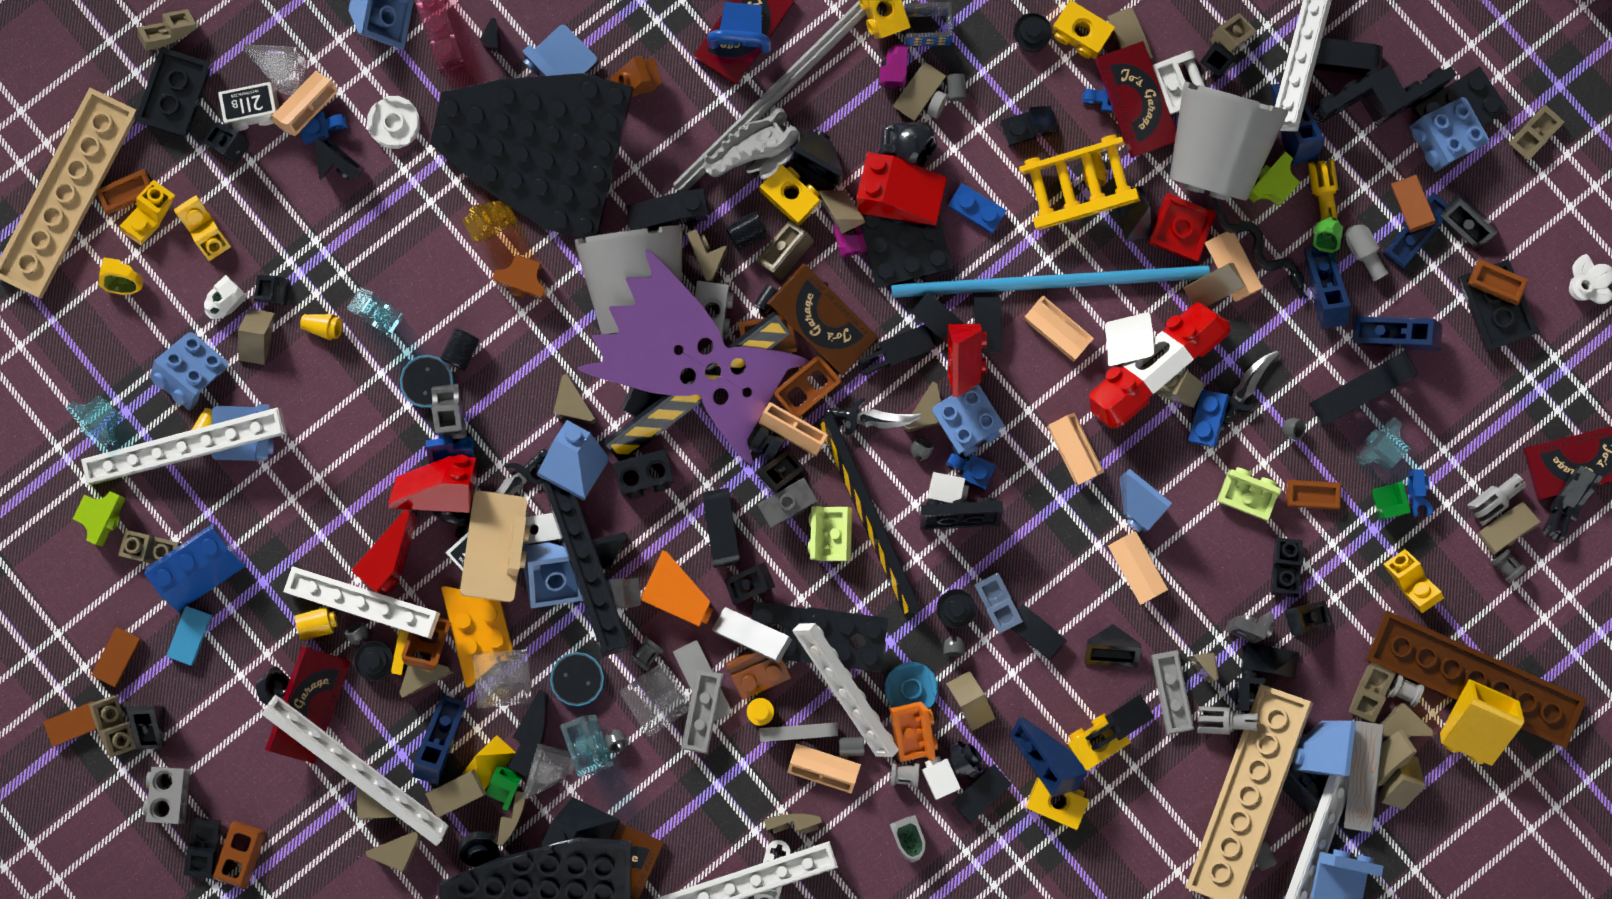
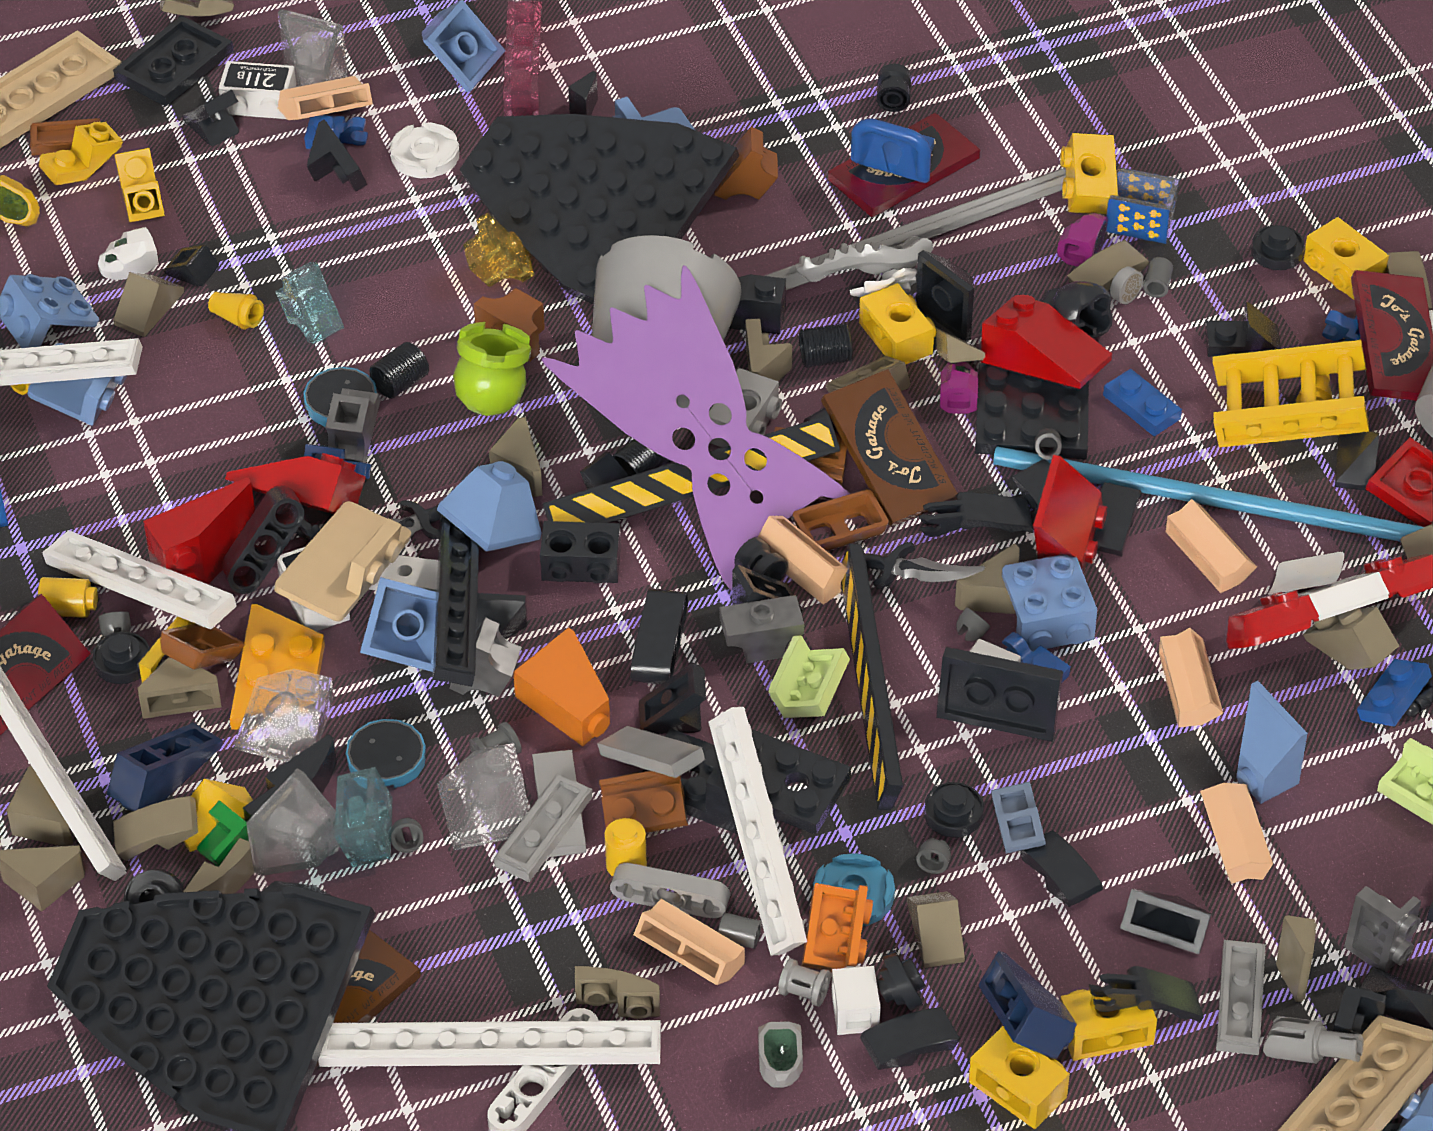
camera: 20 degrees right, 35 degrees down
(432, 546) = (262, 557): none -> black beam
(528, 338) = (491, 368): none -> lime tile
(928, 280) = (1044, 433): none -> dark grey hinge

